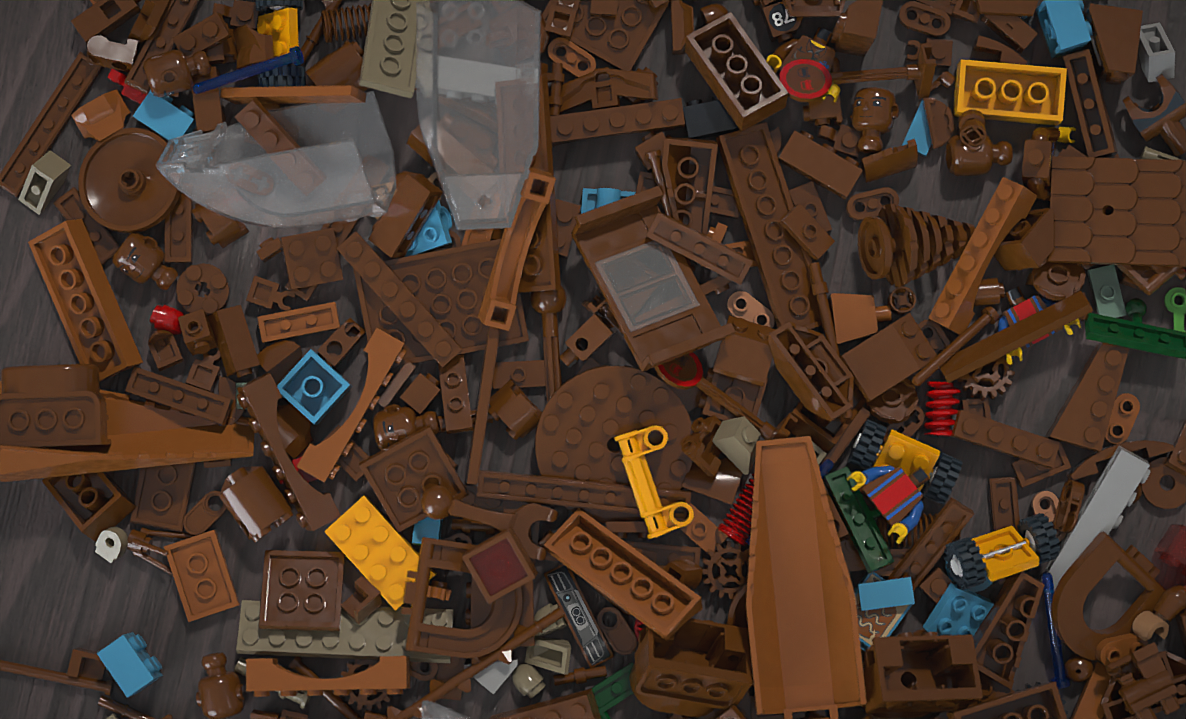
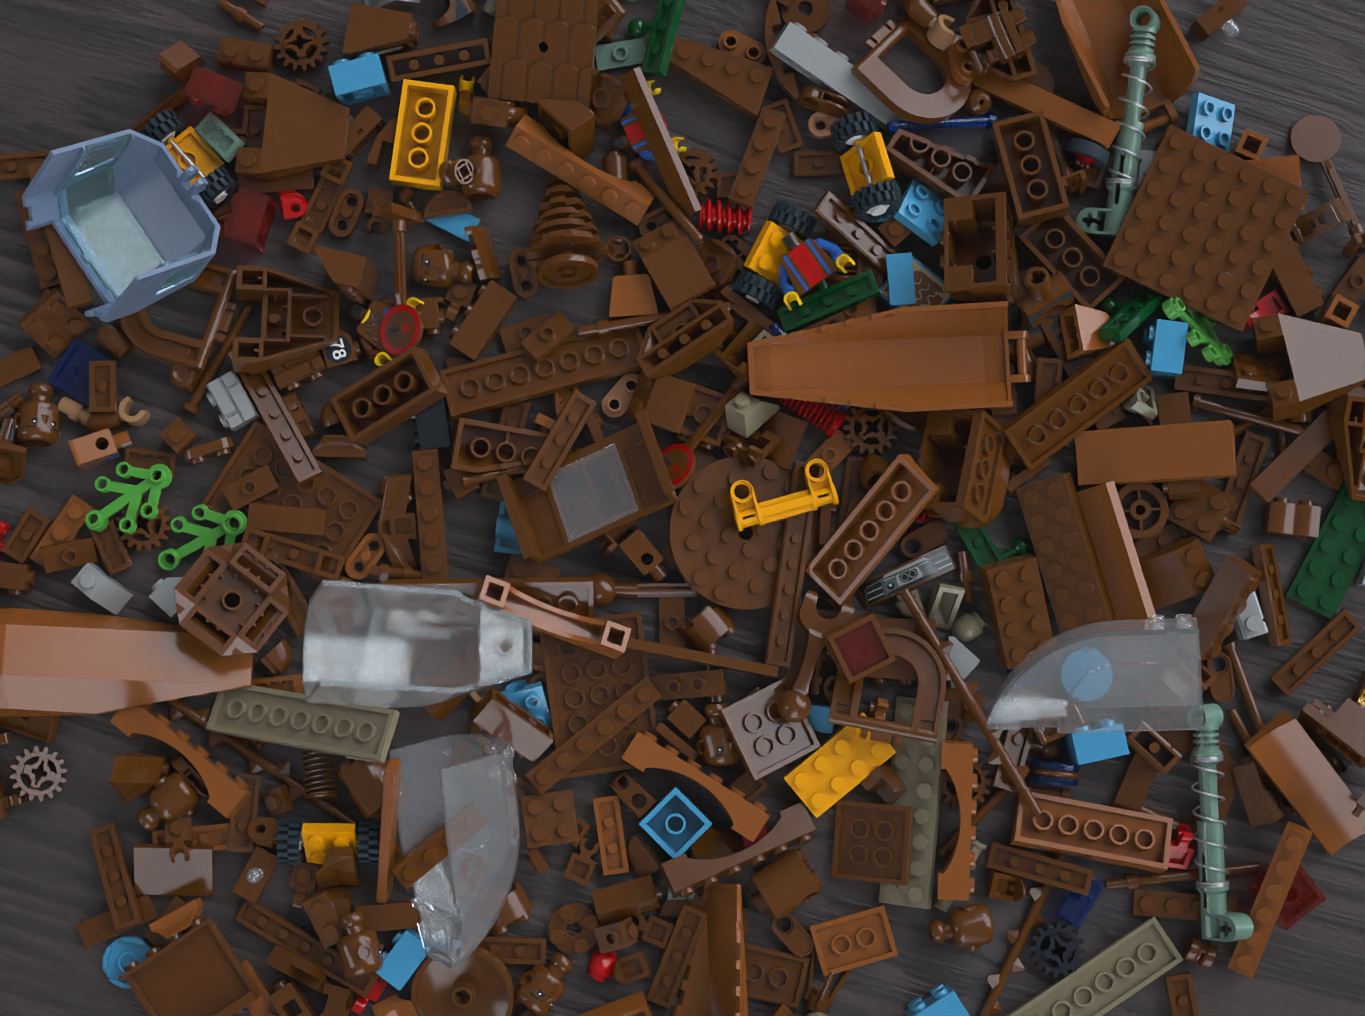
camera: 90 degrees left, 0 degrees up
(295, 56) = (351, 826): clear blue bar -> none

